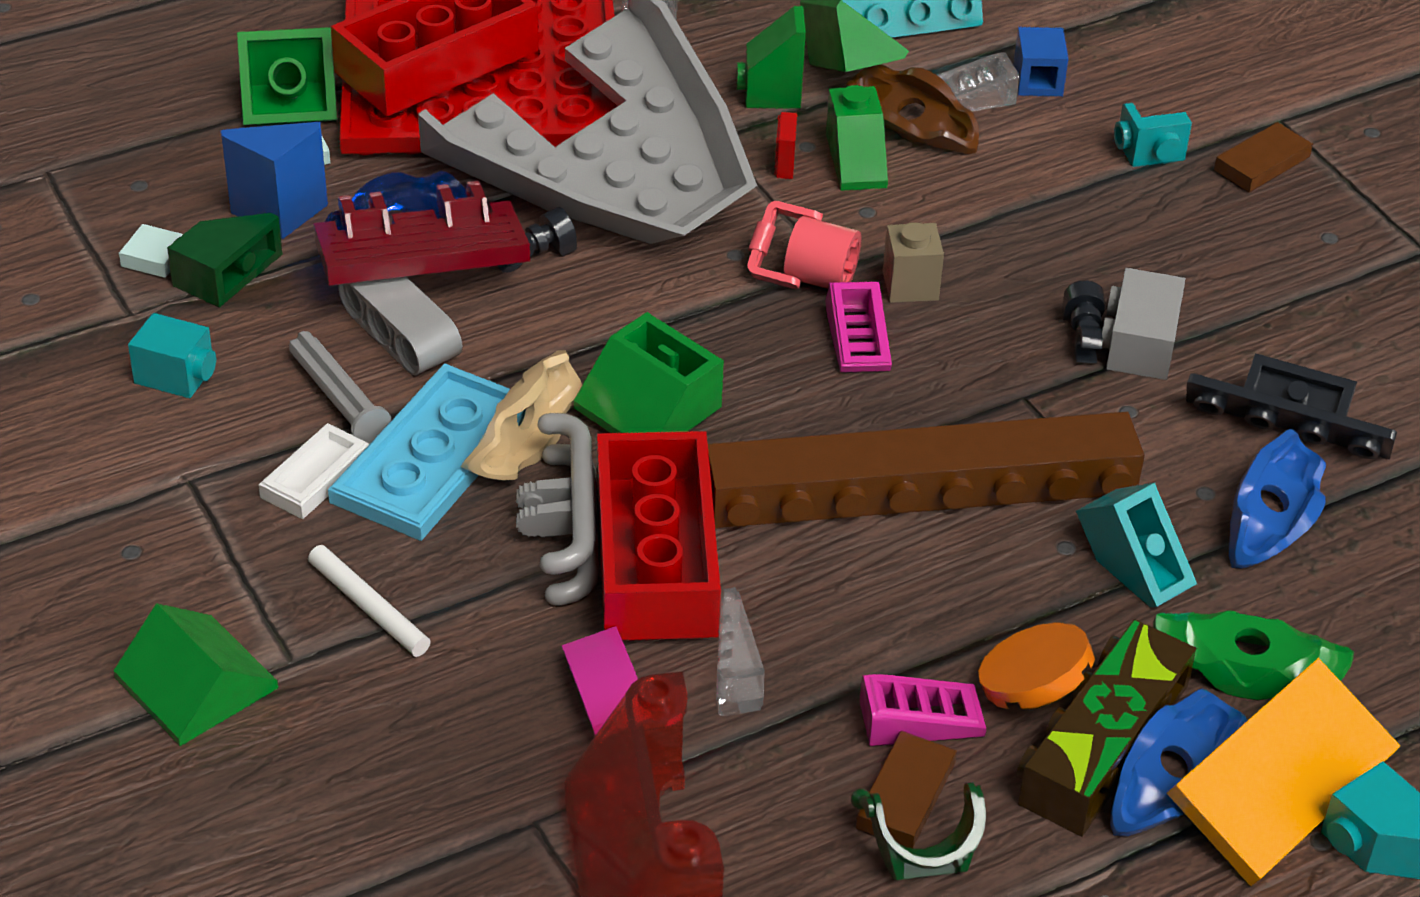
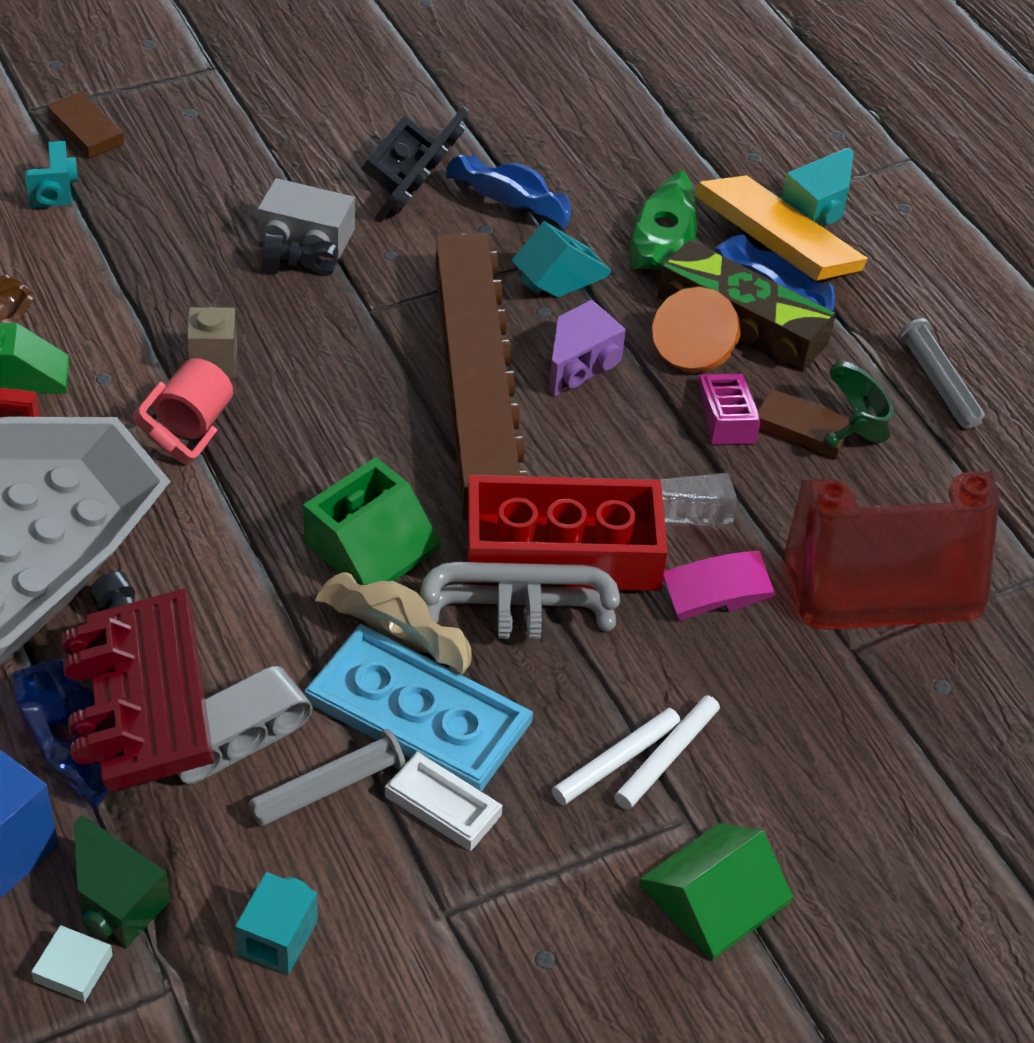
camera: 90 degrees left, 5 degrees up
(374, 642) = (666, 752): none -> white bar
(858, 298) = (266, 391): dark pink slope -> none
(982, 559) = (584, 346): none -> medium lavender slope

